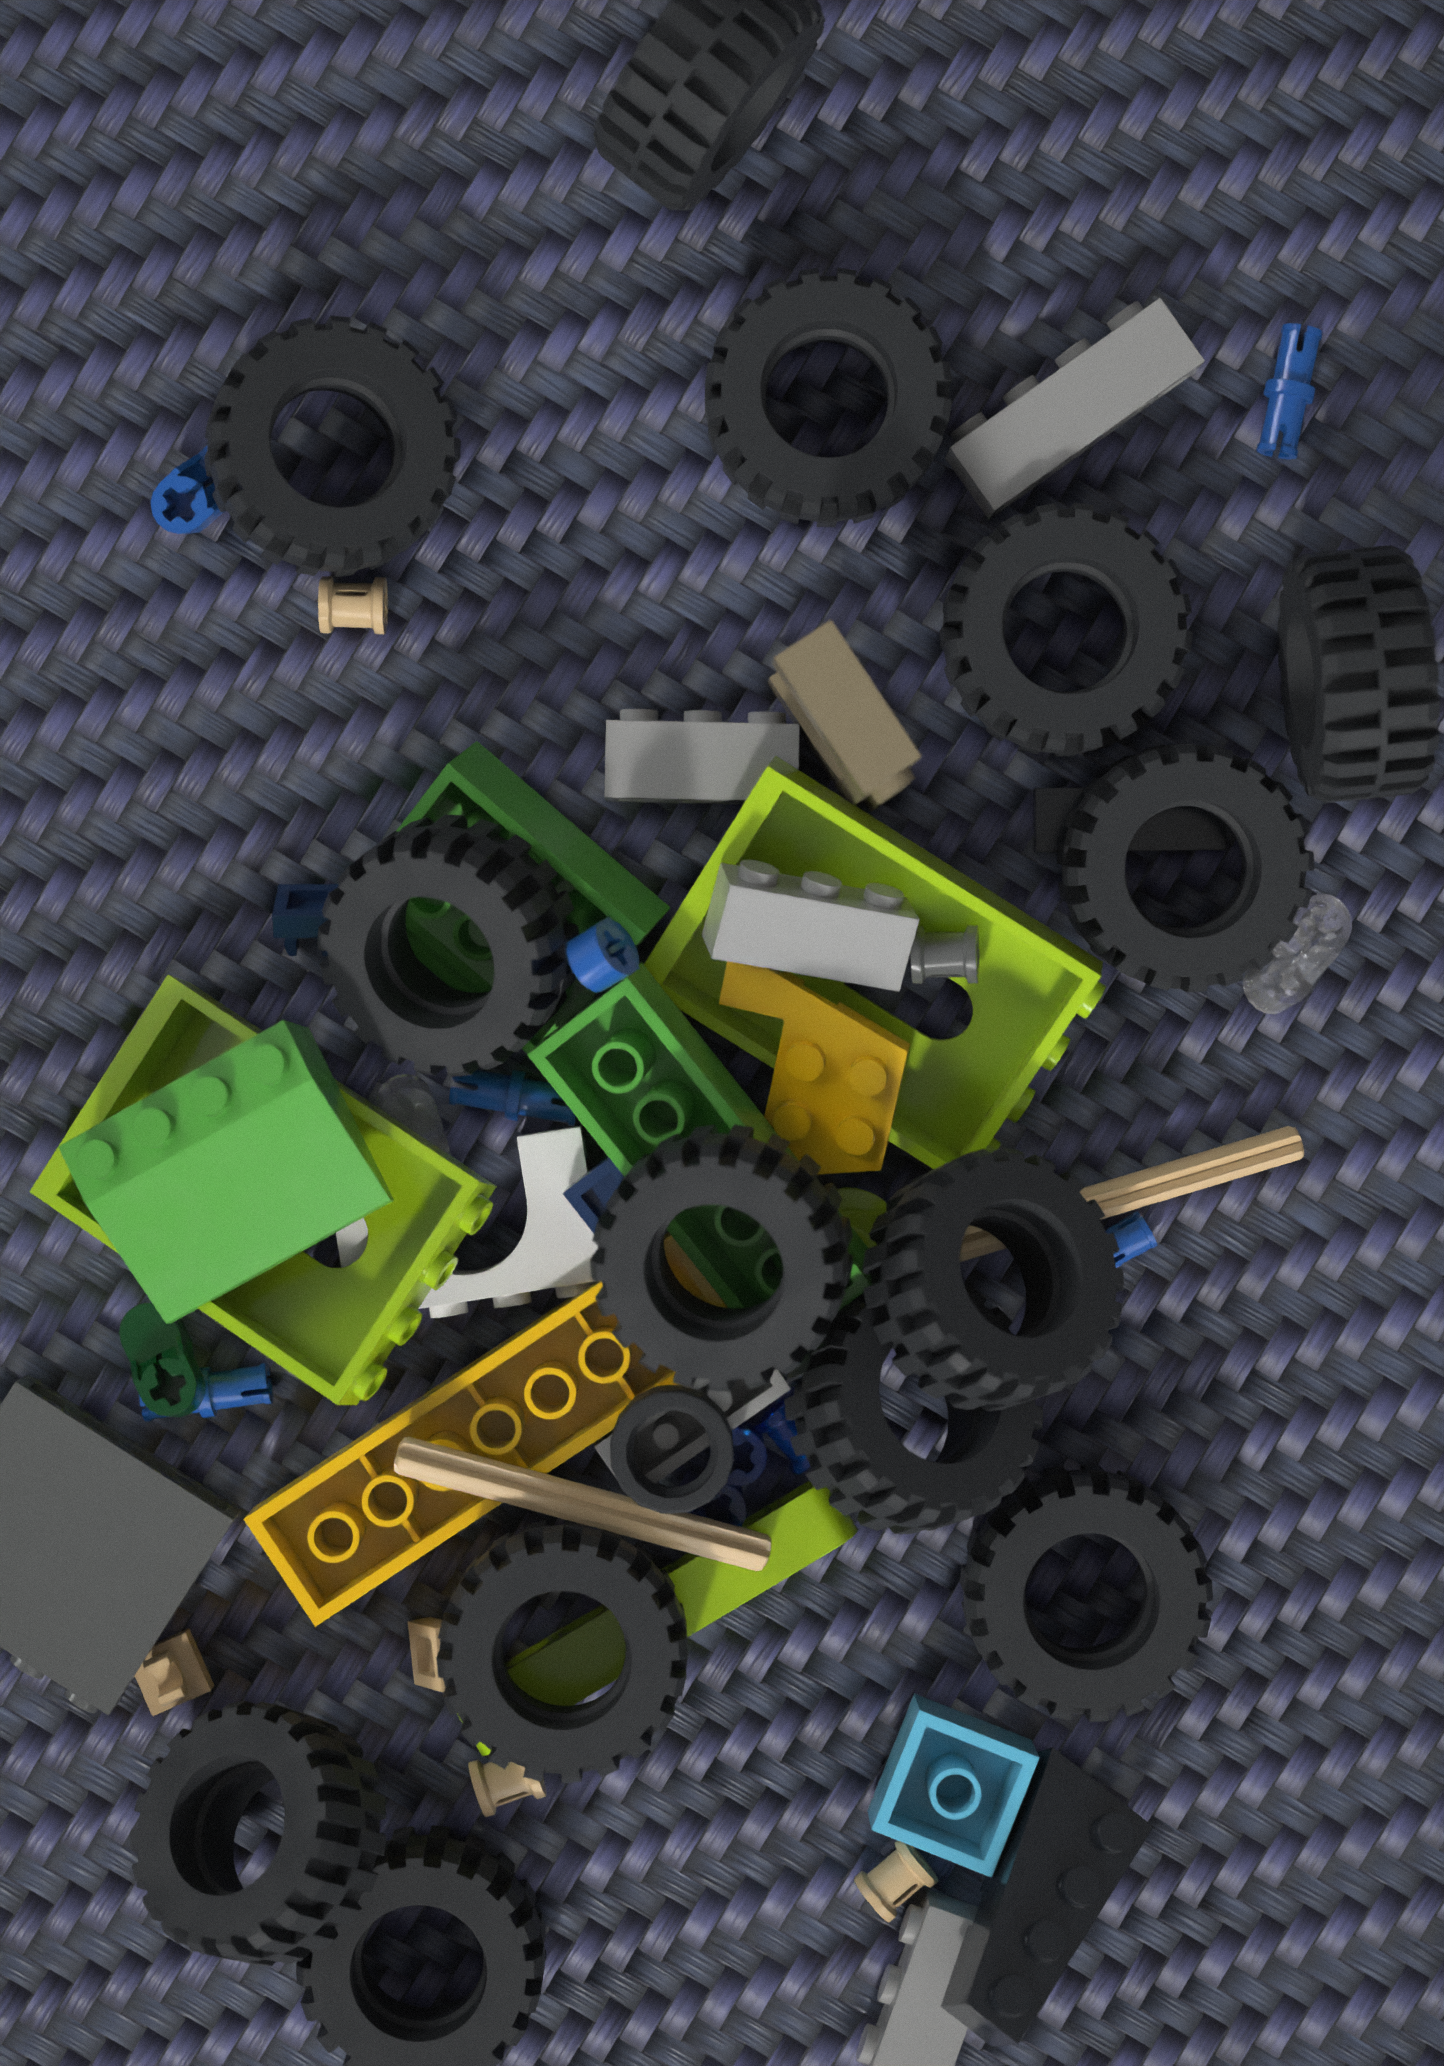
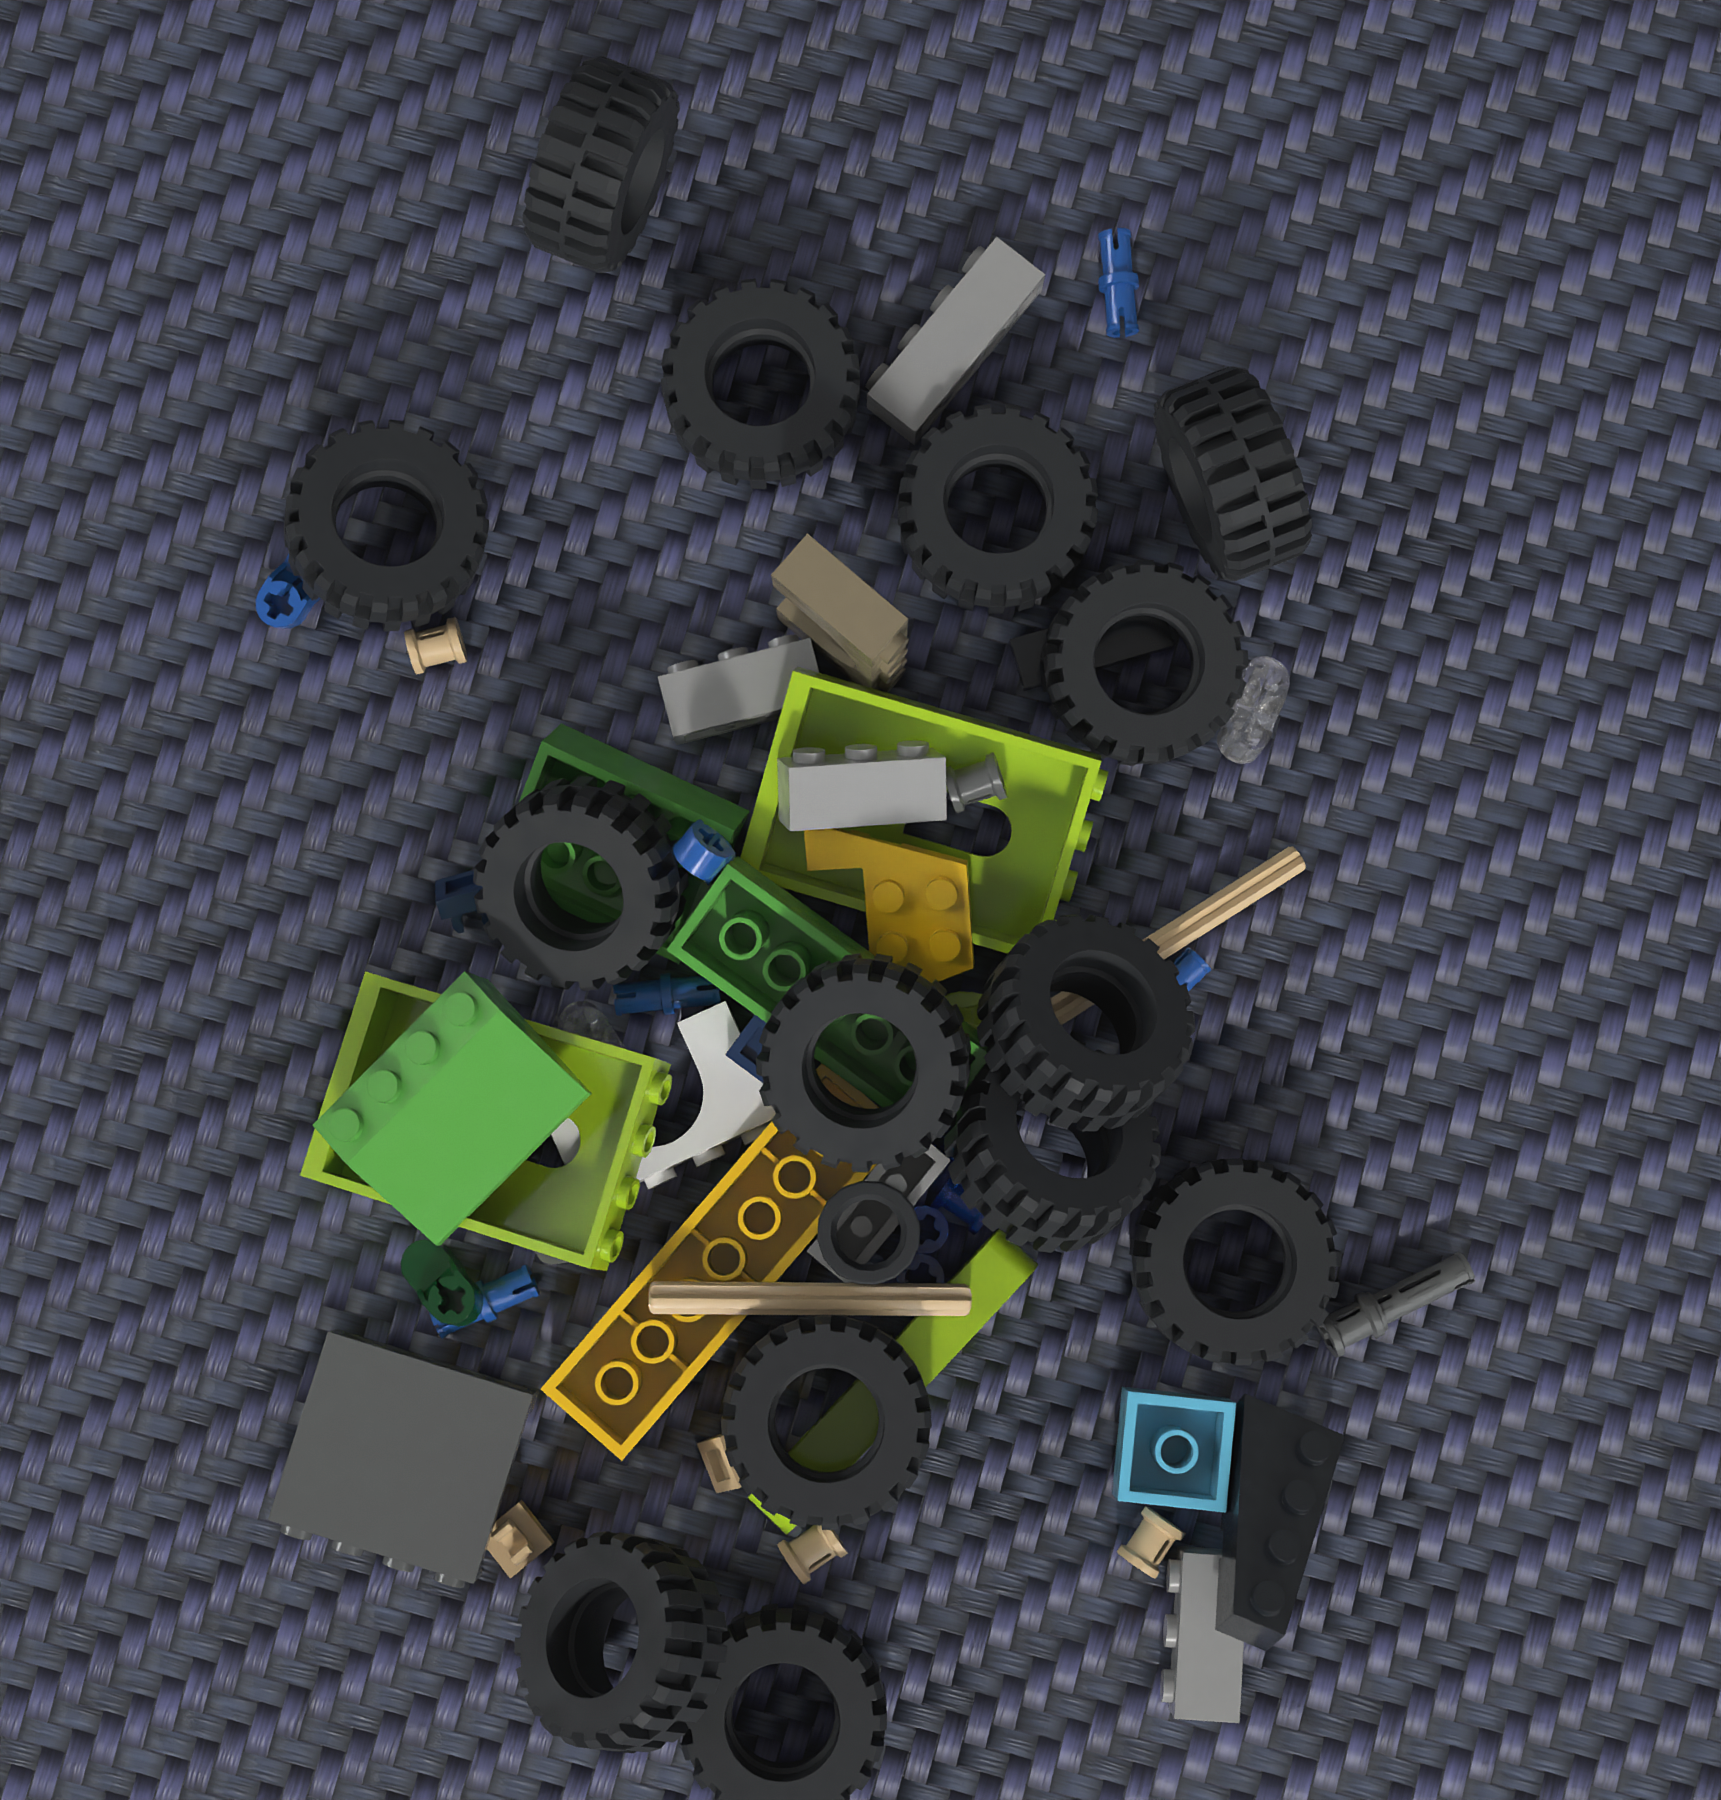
camera: 15 degrees left, 5 degrees down
(1225, 1691) = (1373, 1313): none -> dark grey pin

